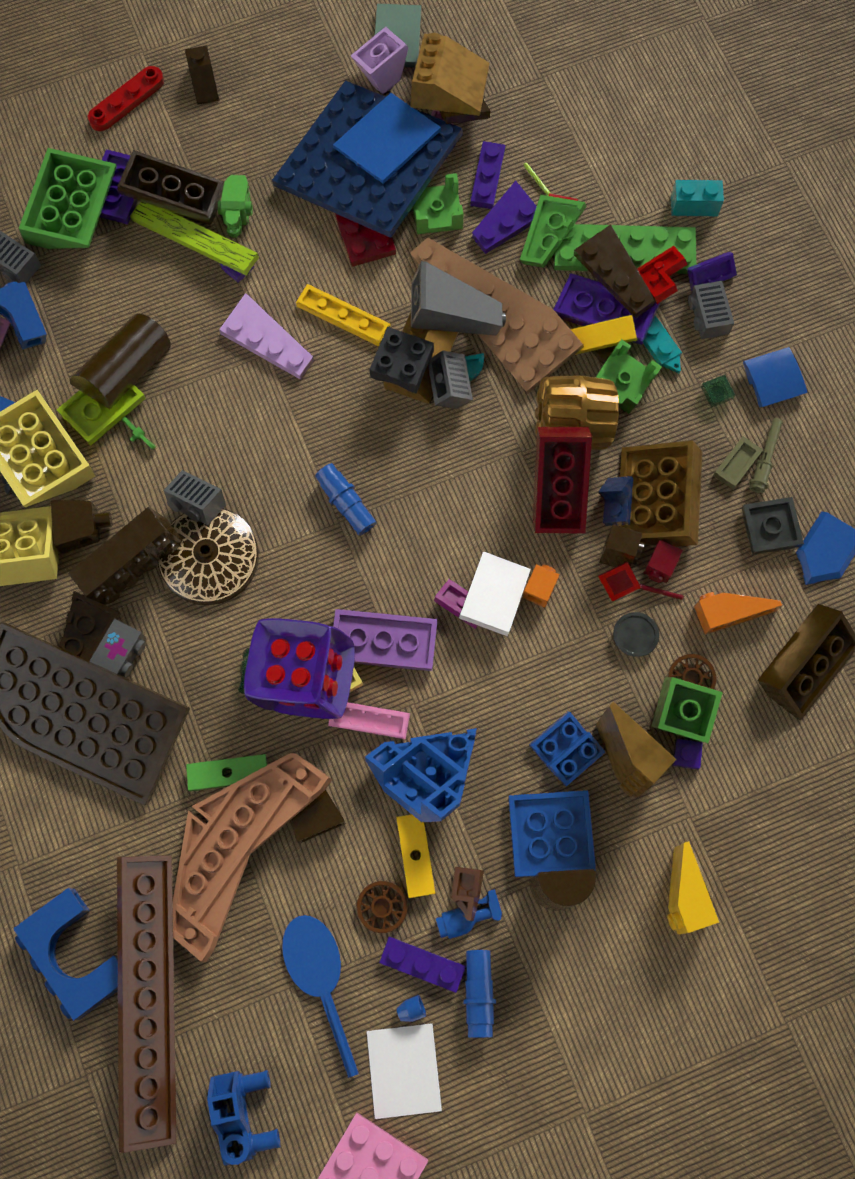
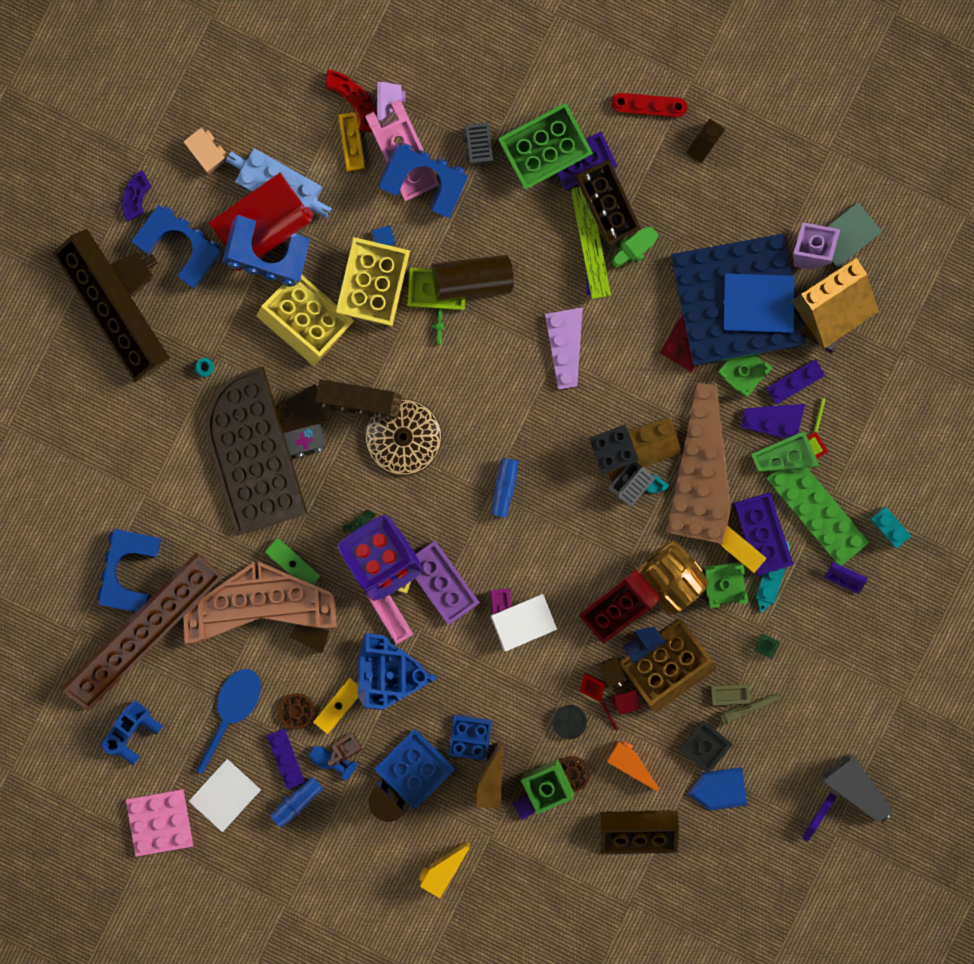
camera: 45 degrees right, 15 degrees up
(77, 524) = (355, 346): dark brown torso -> none
(194, 497) = (427, 401): dark grey brick -> none
(342, 314) = (621, 378): yellow tile -> none
(411, 1009) = (258, 773): blue hose -> none
(452, 305) = (671, 444): dark grey slope -> none
(541, 585) = (552, 644): orange brick -> none
(613, 268) = (791, 517): dark brown wing -> none
(657, 273) = (809, 546): red plate -> none
(711, 310) = (817, 598): dark grey brick -> none
(775, 377) = (805, 672): blue slope -> none

